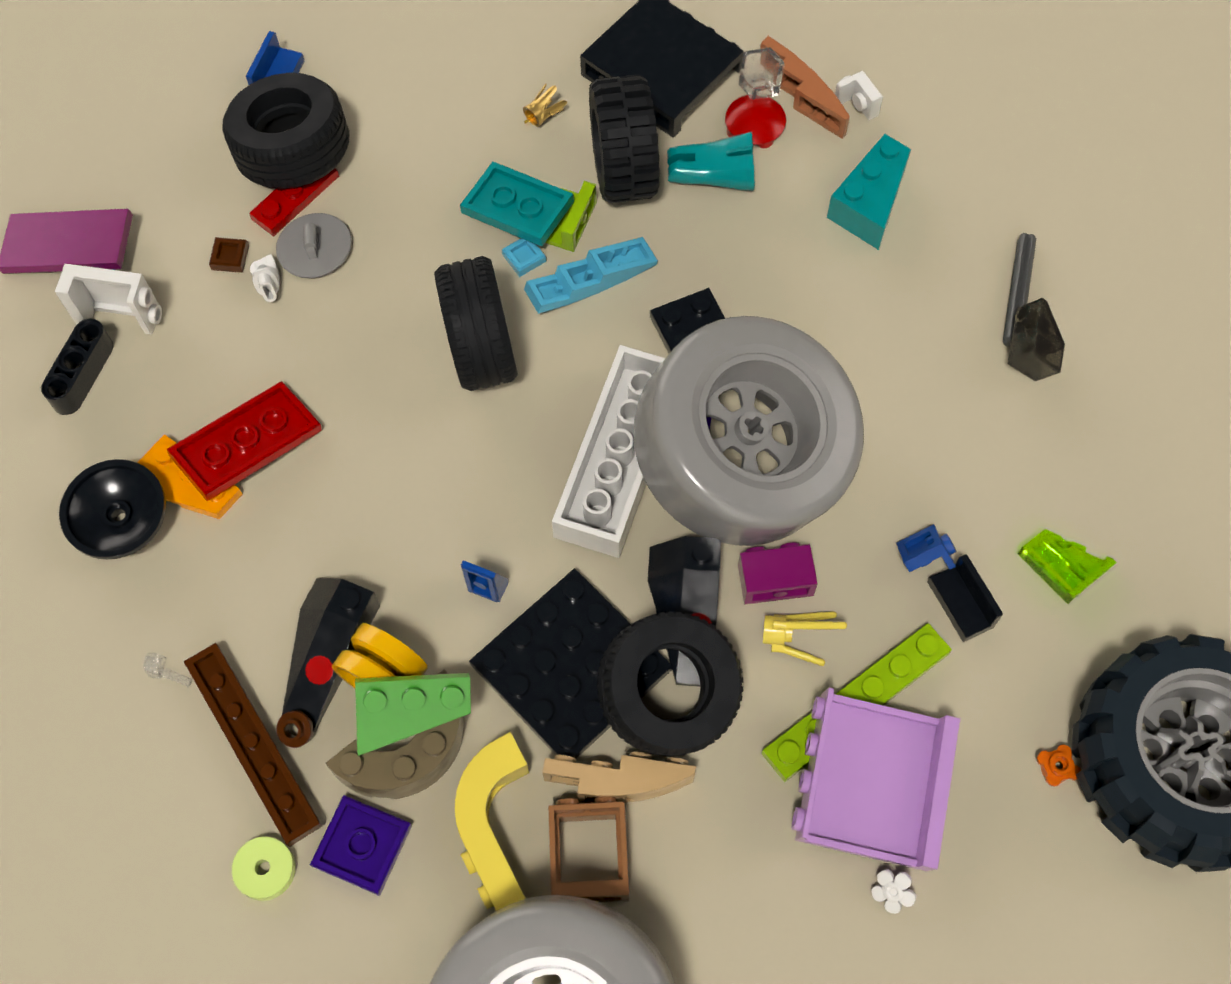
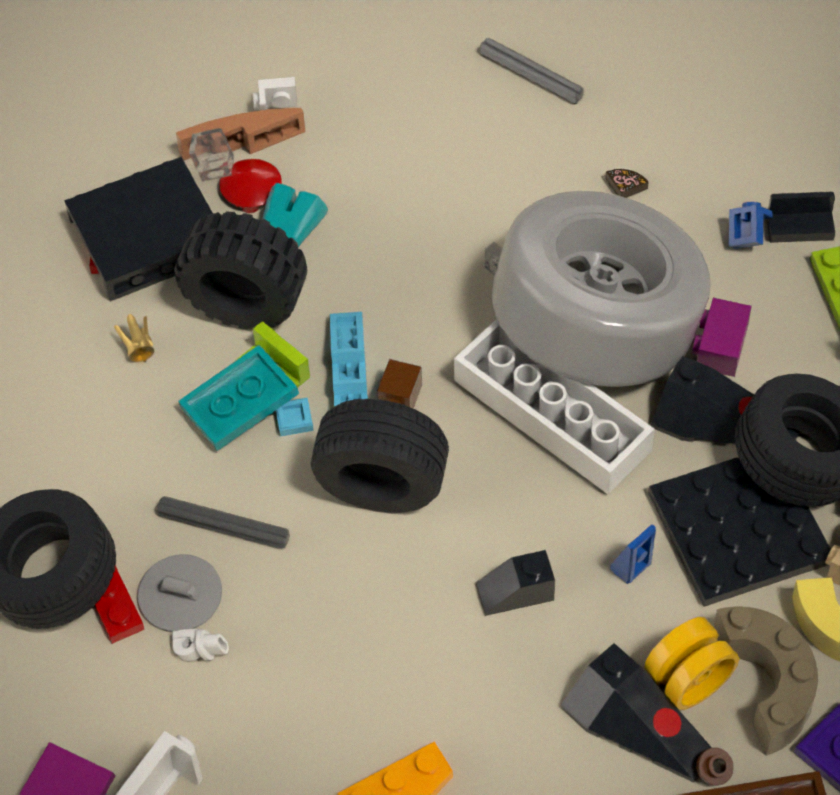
camera: 65 degrees left, 10 degrees down
(228, 254) = (147, 674): reddish brown tile -> none
(244, 440) = (384, 719): red tile -> none
(392, 247) = (223, 522): none -> dark grey axle
(407, 705) = (750, 641): bright green wing -> none
(421, 497) = (518, 583): none -> black slope
(584, 321) = (400, 383): none -> reddish brown brick
(684, 316) = (445, 312): black plate -> none
(780, 630) = (775, 356): light yellow plant -> none
(870, 190) = (385, 126): teal wedge -> none
(926, 423) = (626, 182): none -> dark brown tile
(1036, 341) = (592, 74): clear smoke slope -> none
(1064, 564) = (799, 144): clear neon green wing -> none

